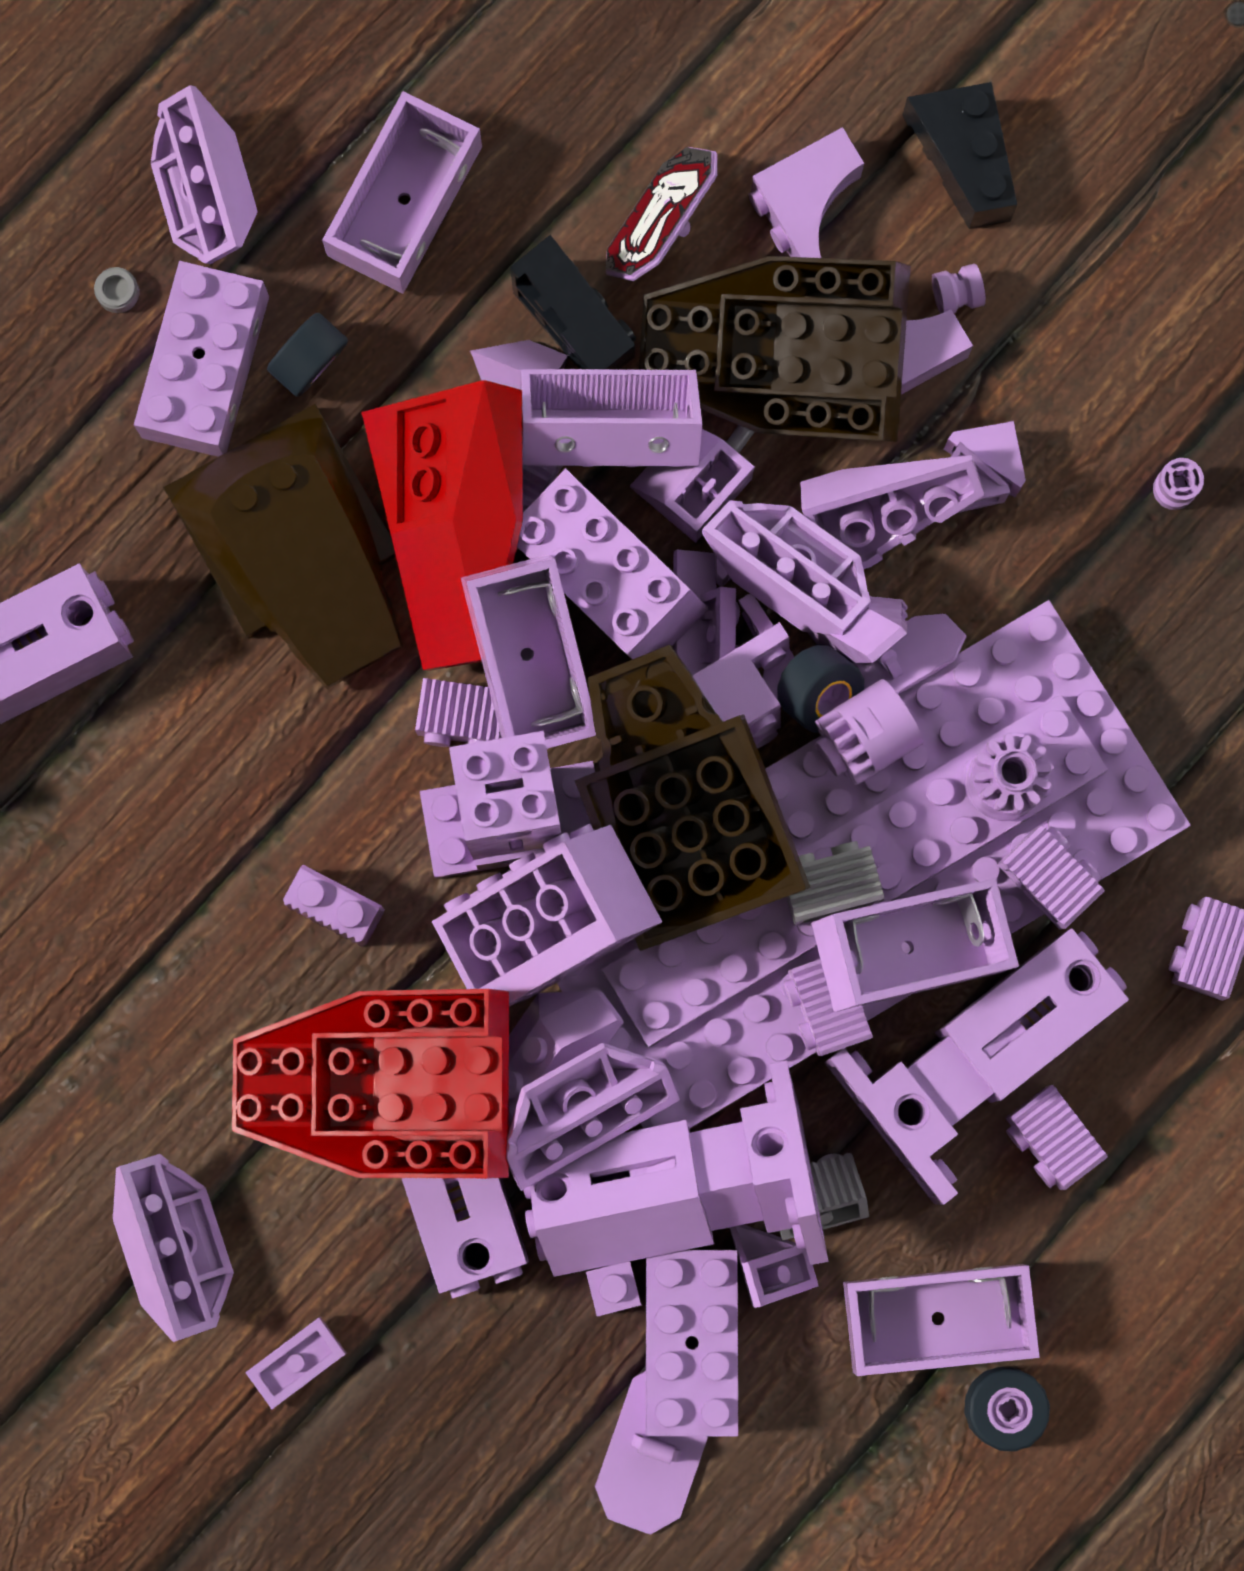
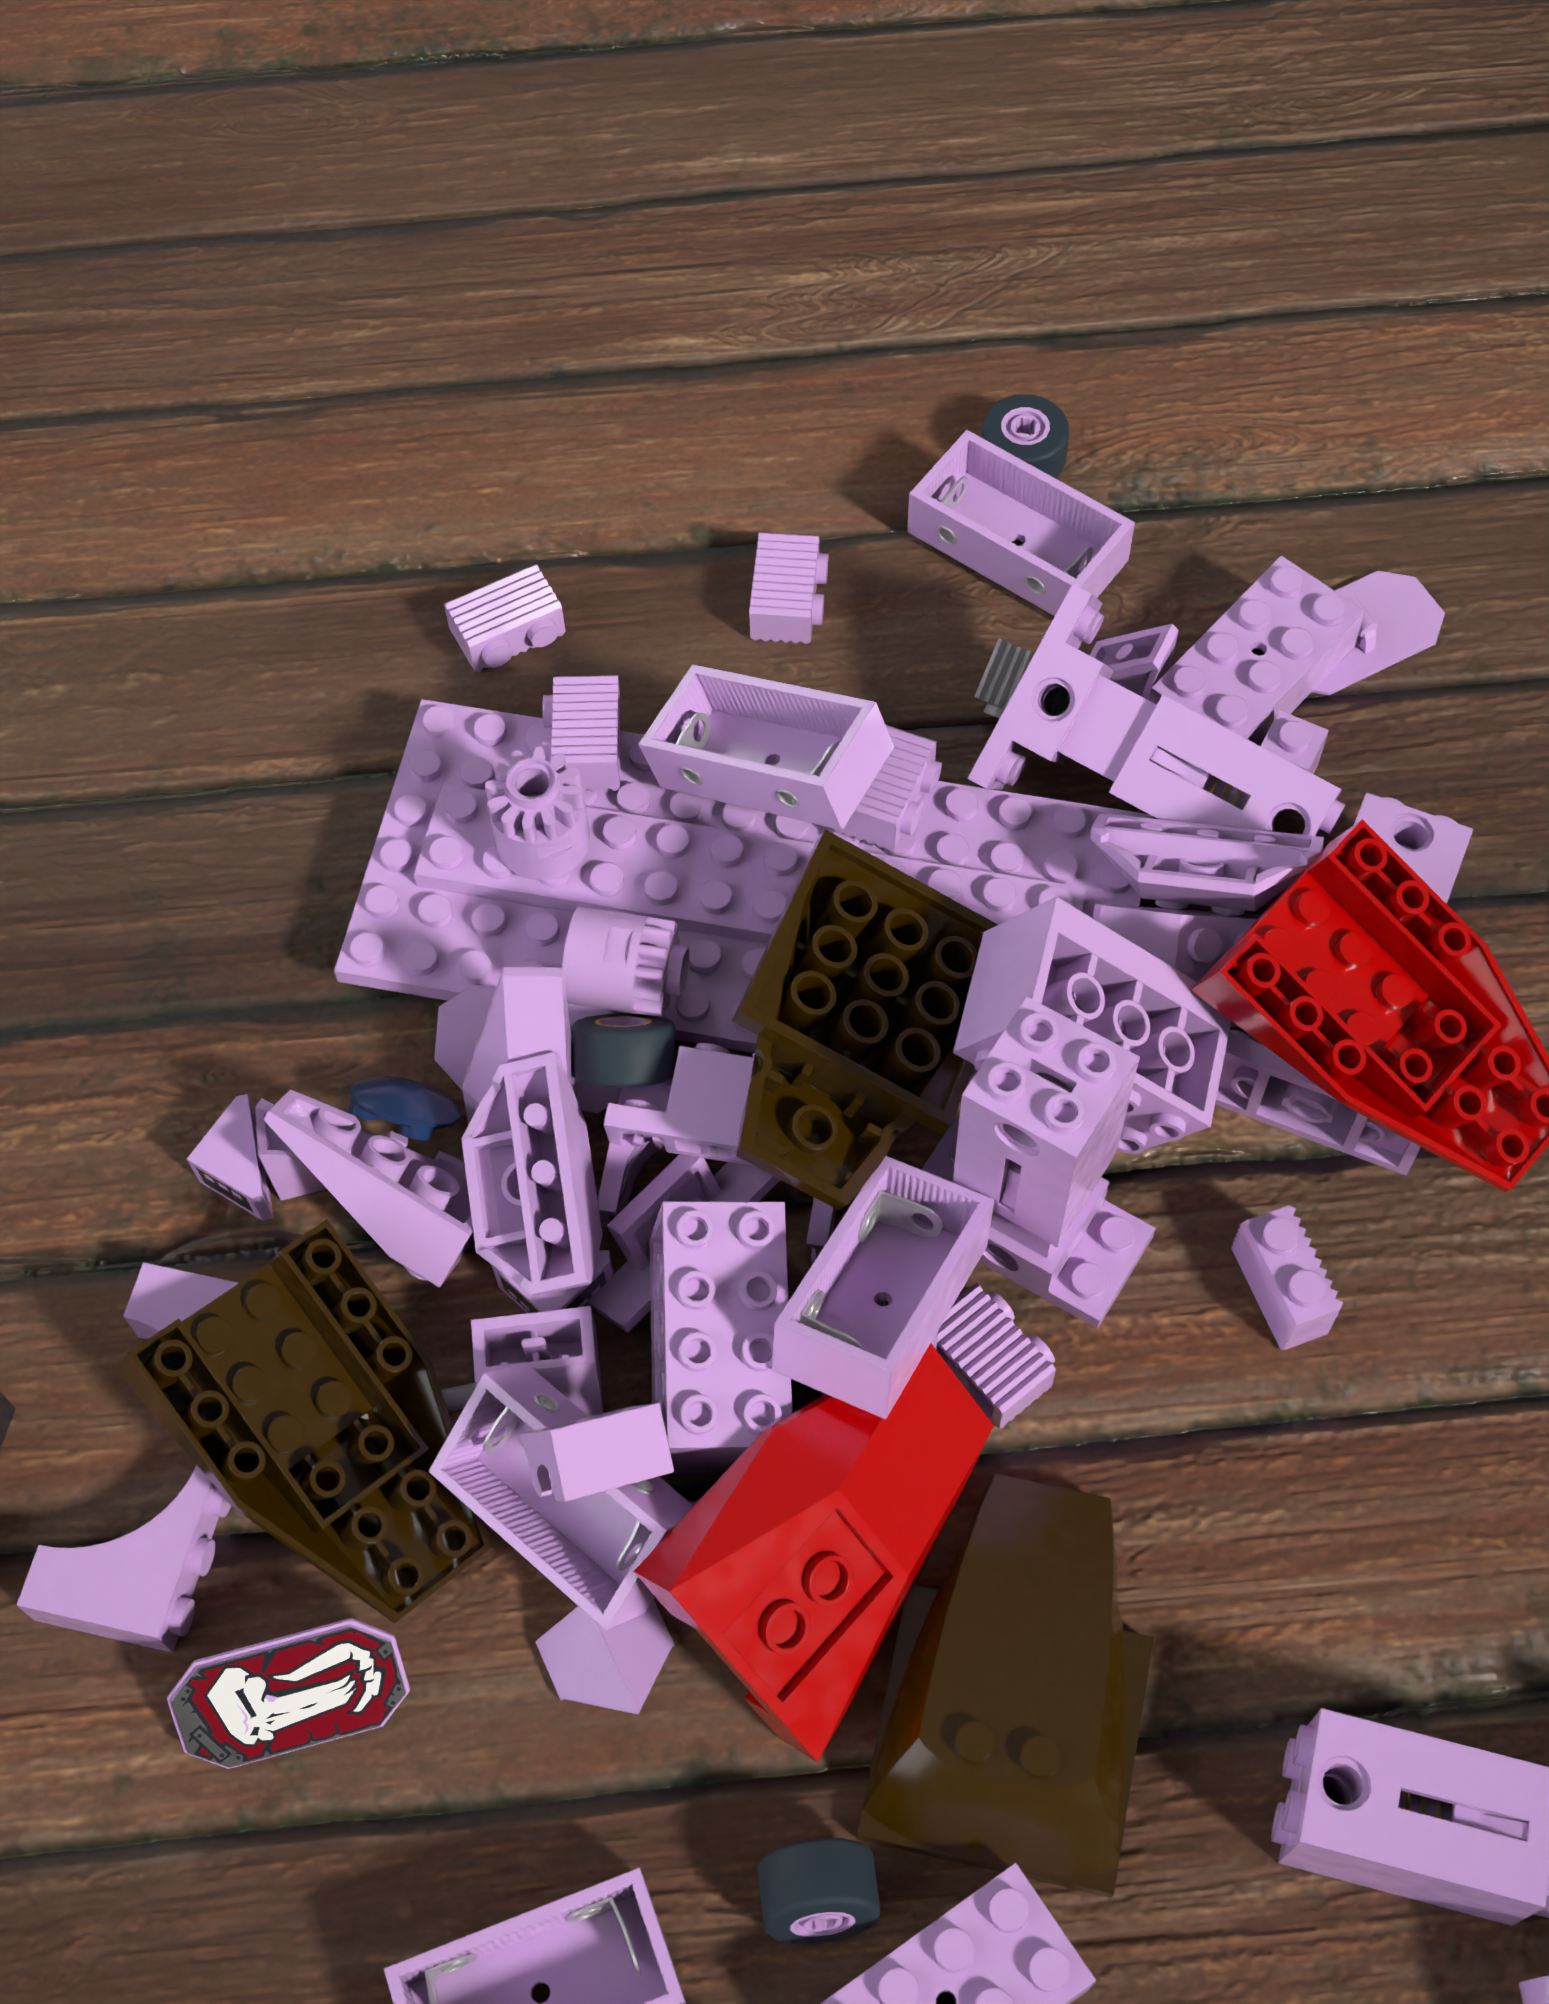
camera: 135 degrees left, 20 degrees down
(571, 309) = (488, 1669): black wedge -> none
(597, 430) = (598, 1452): none -> lavender hinge
(836, 883) = (767, 856): light grey brick -> none
(928, 565) = (404, 1102): none -> dark blue dish
(958, 289) = (92, 1342): lavender wheel -> none
(983, 1054) = (778, 642): lavender brick -> none
(1172, 490) = (109, 991): lavender wheel -> none

